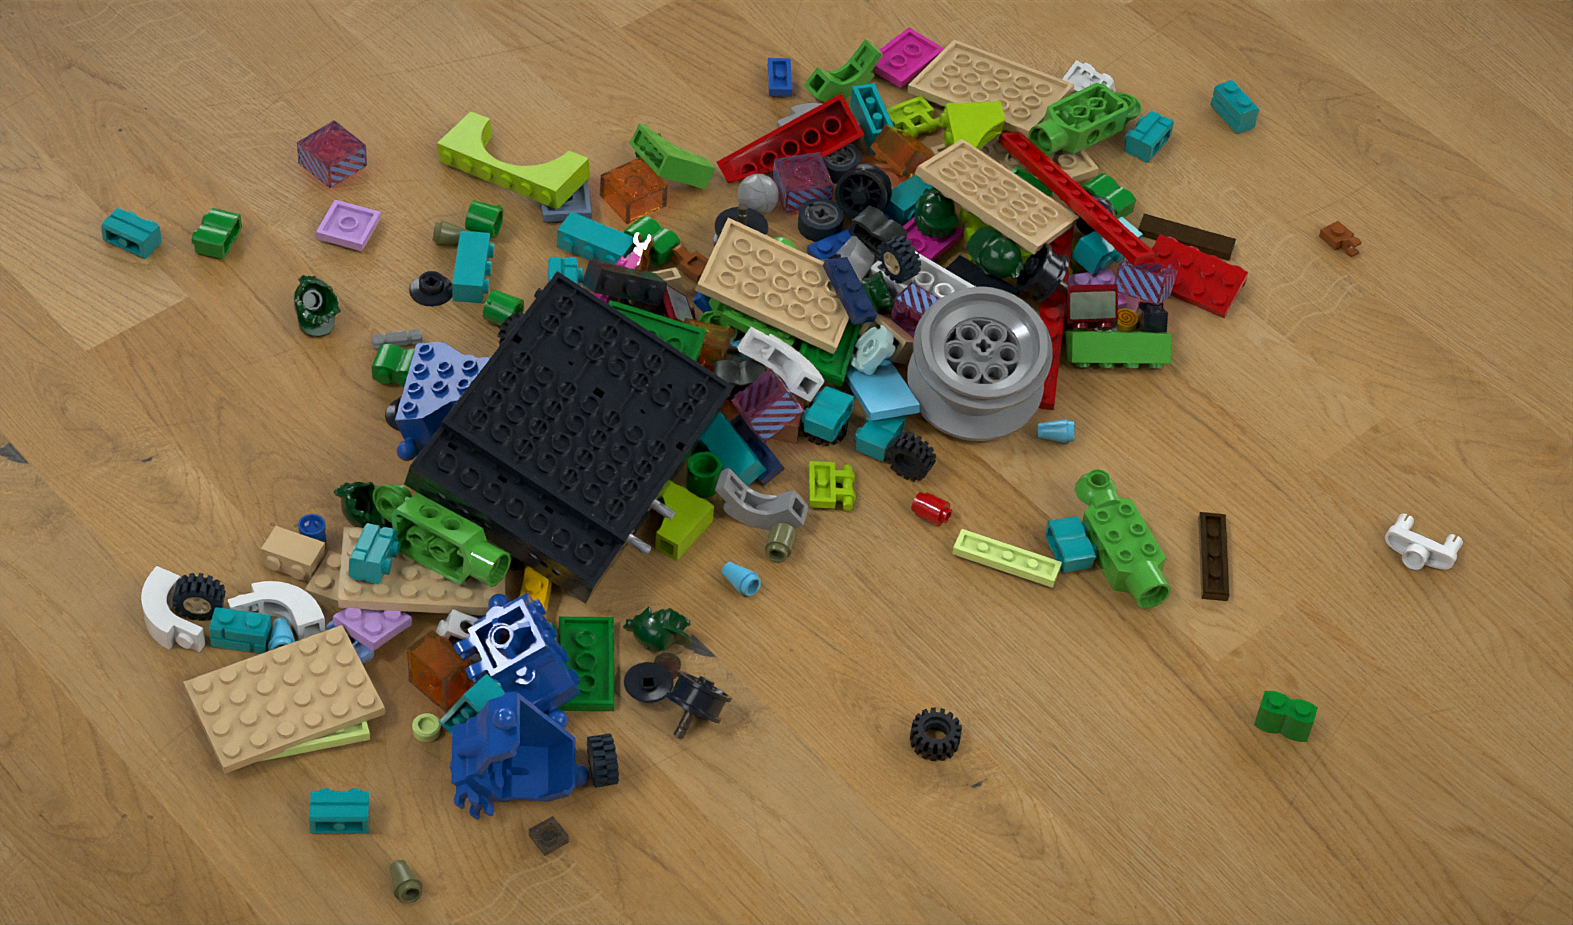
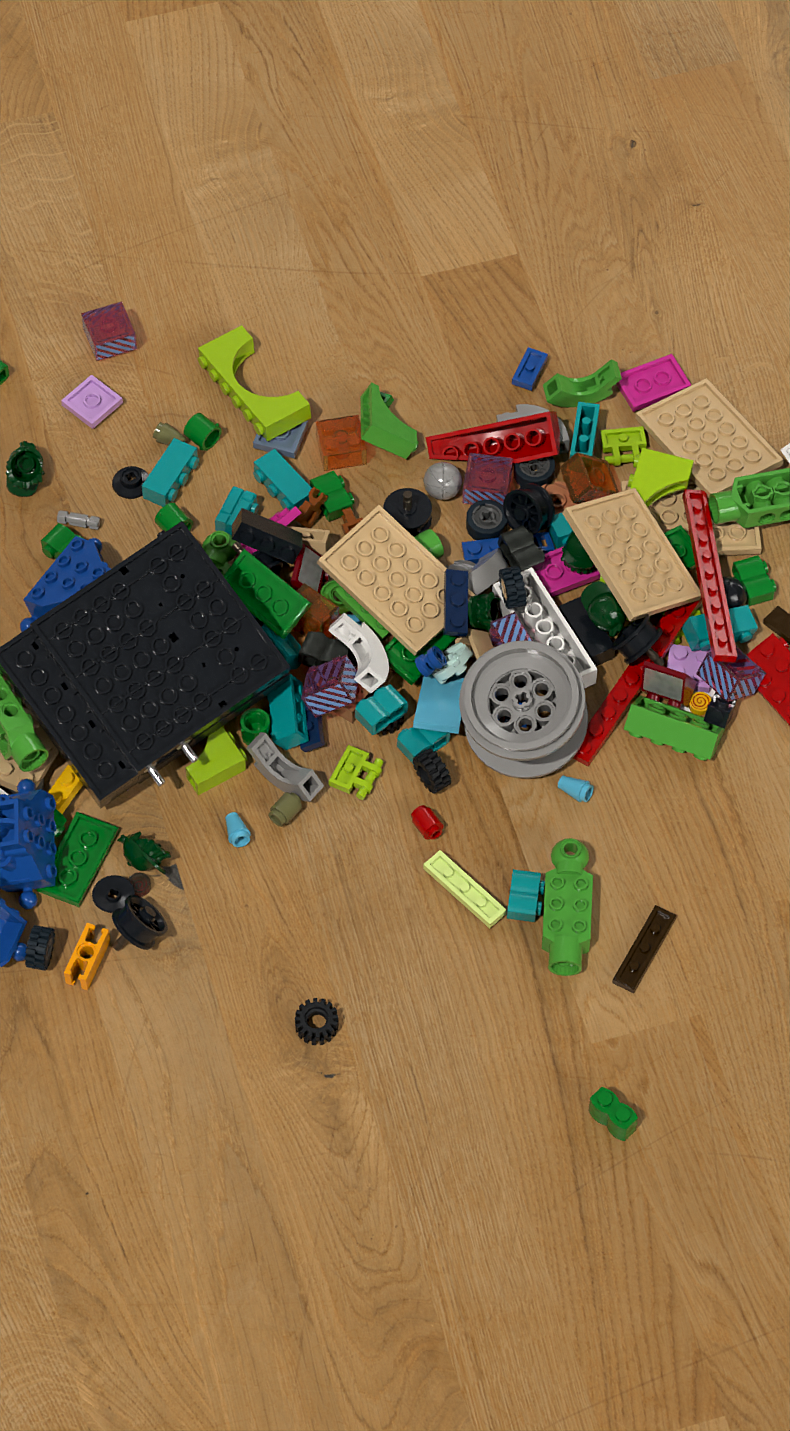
camera: 30 degrees right, 10 degrees up
(656, 762) = (88, 965): none -> light orange piece
(859, 348) = (429, 662): none -> blue wheel

